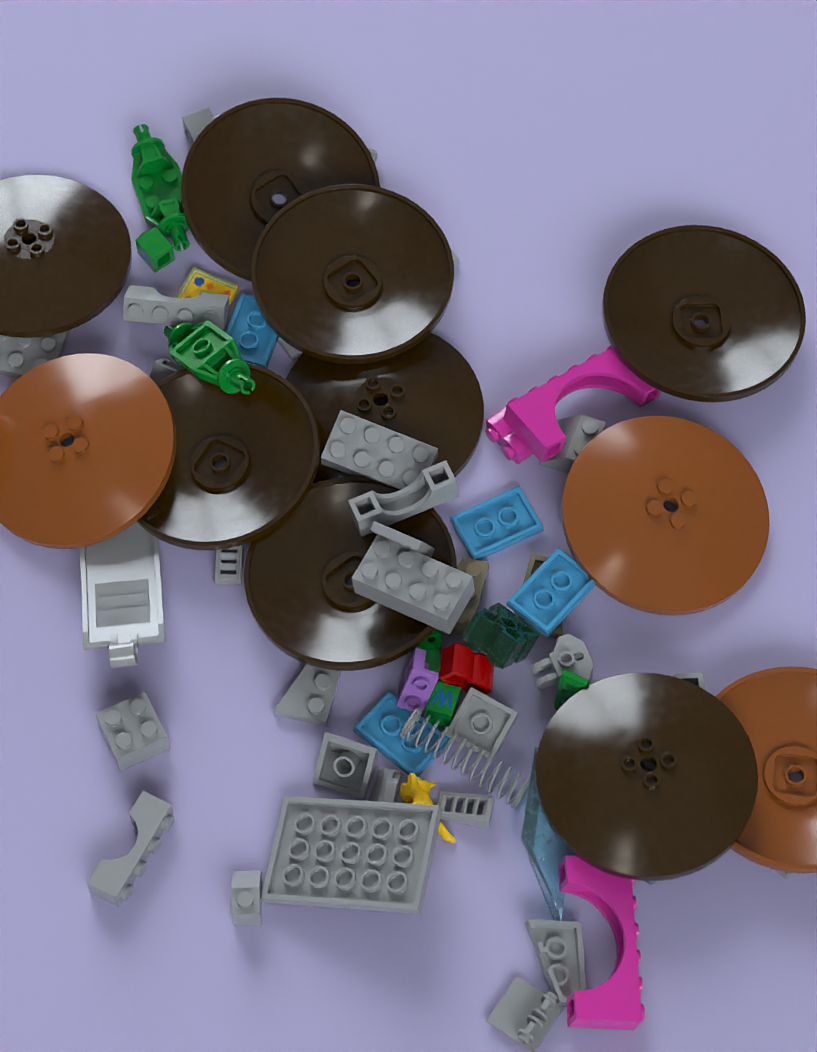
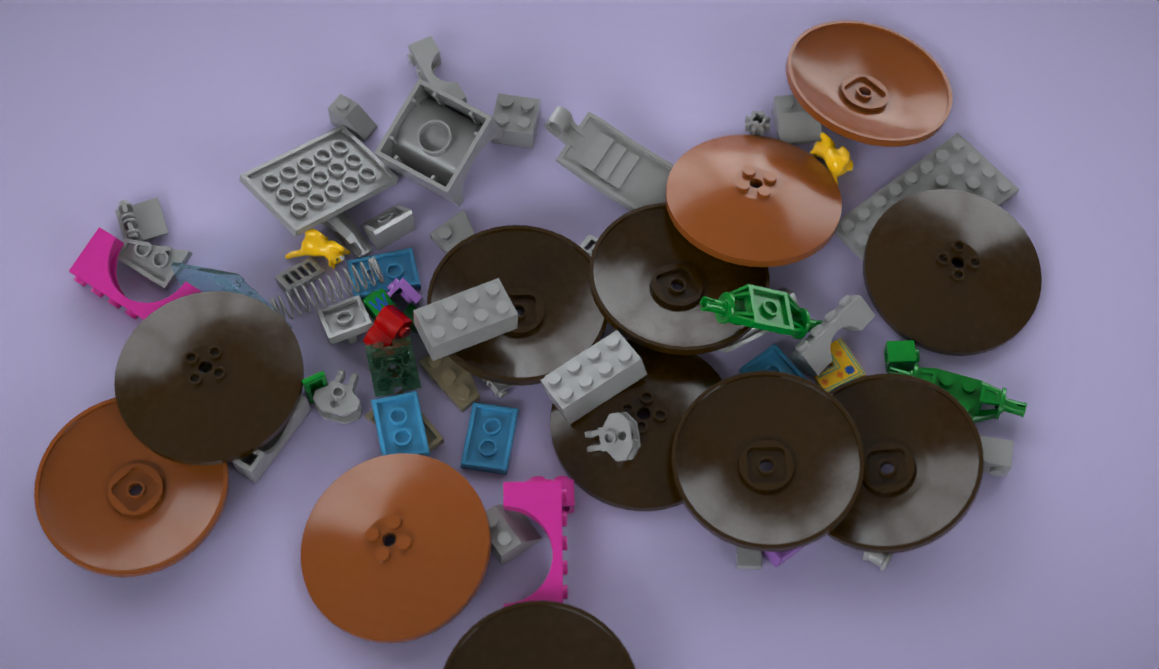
camera: 125 degrees right, 0 degrees up
(227, 754) = (436, 140): none -> light grey piece
(402, 539) = (502, 329): light grey tile -> none
(428, 395) = (617, 437): none -> light grey hinge
(430, 489) = (537, 355): light grey arch -> none

